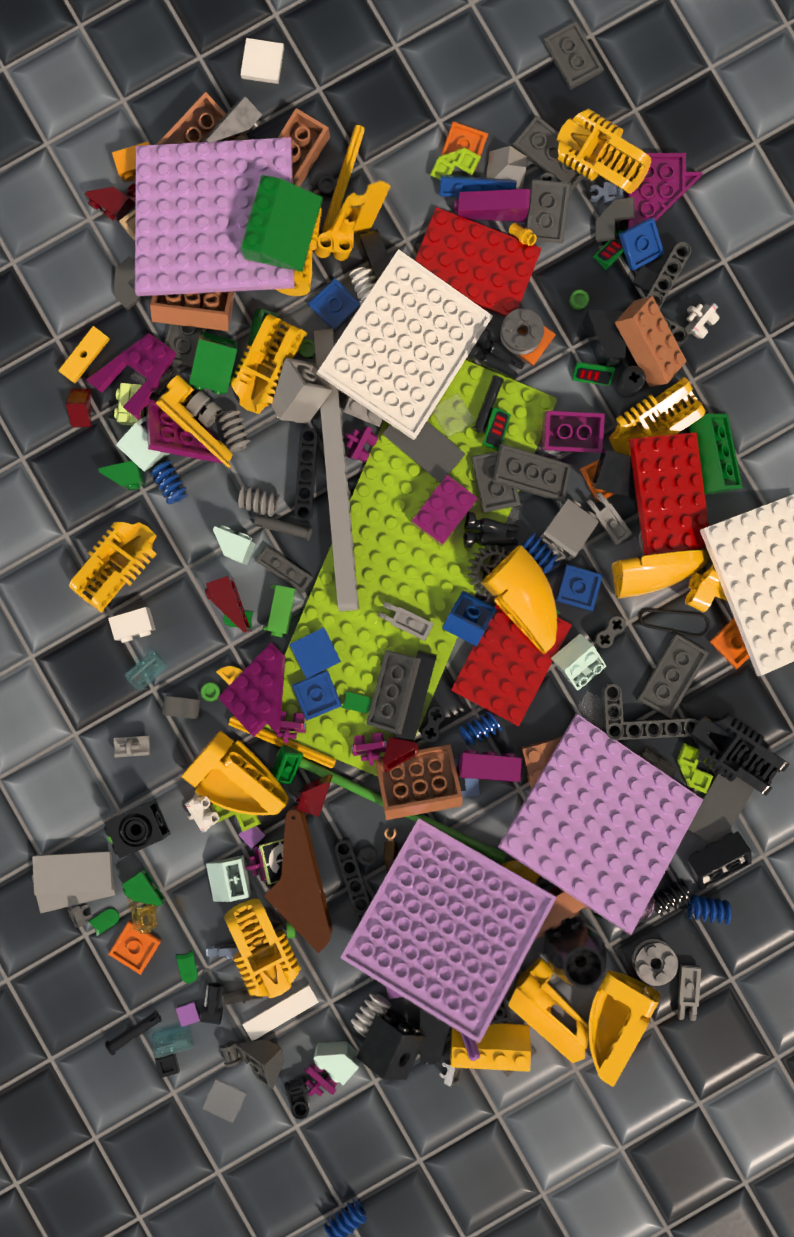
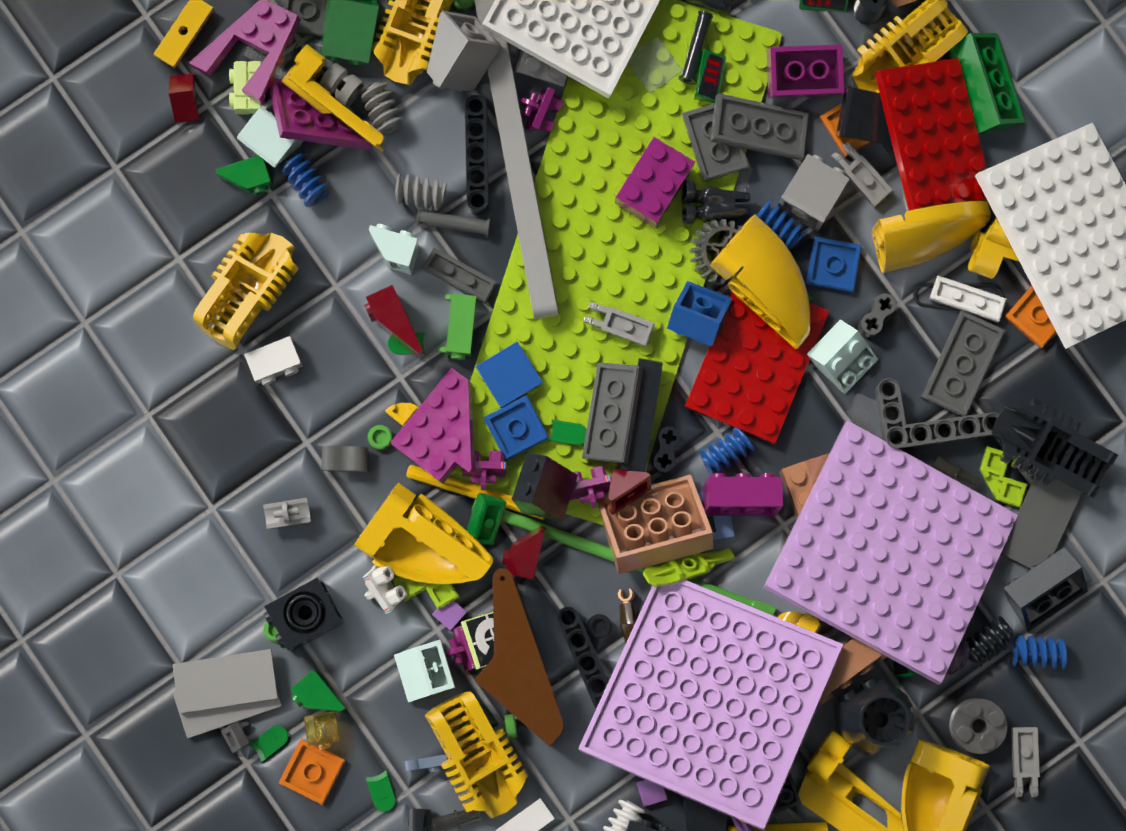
camera: 10 degrees left, 5 degrees down
(146, 670) = (295, 418): clear light blue slope -> none
(332, 749) = (544, 487): none -> black slope
(429, 450) = (627, 110): dark grey tile -> none
(430, 821) = (677, 571): none -> lime piece
(682, 625) = (967, 299): none -> white tile

